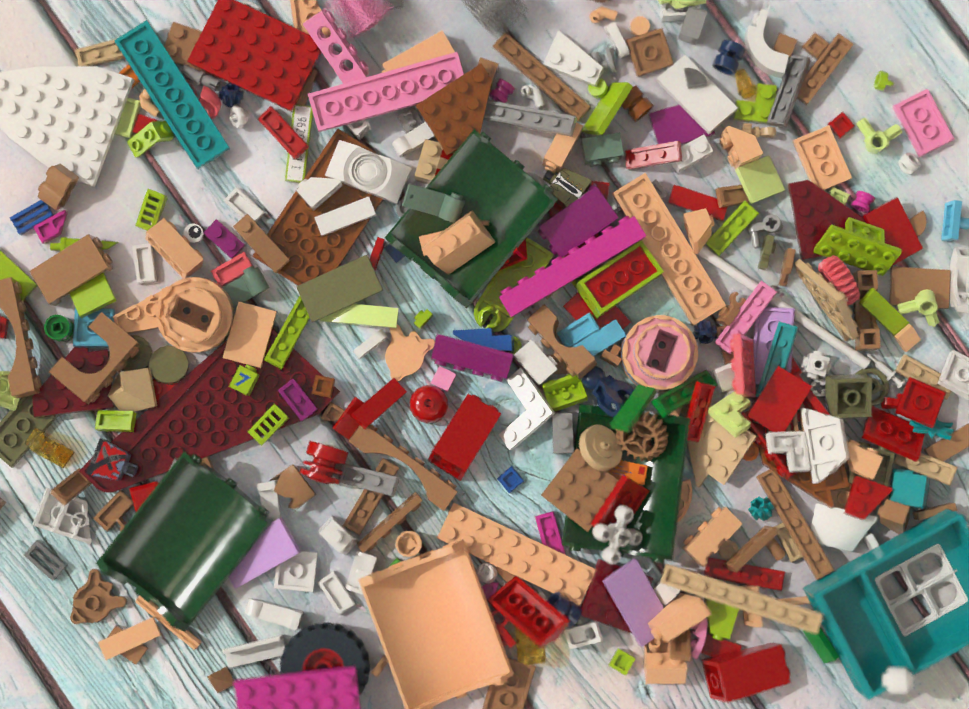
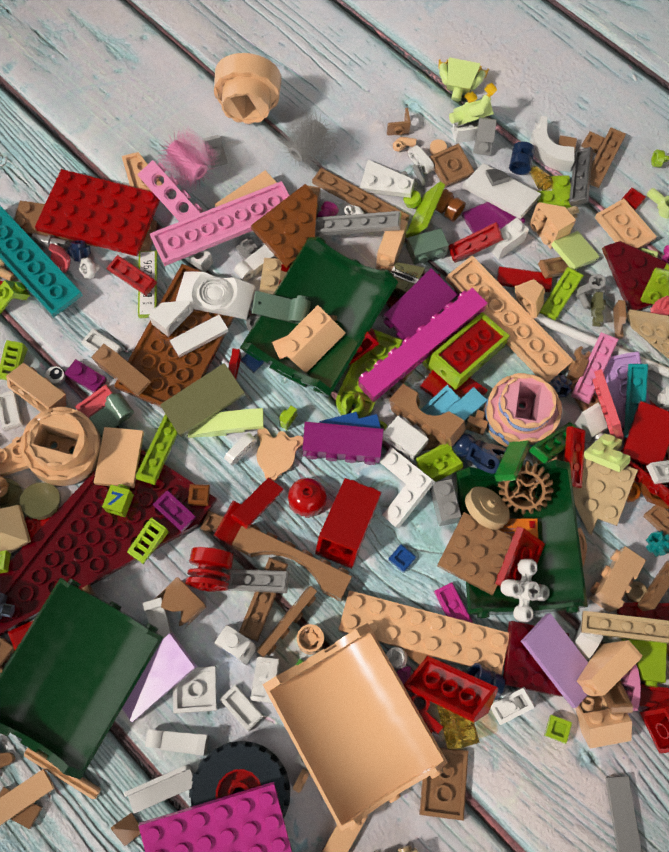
camera: 10 degrees left, 15 degrees down
(443, 378) = (318, 470): bright pink slope -> none

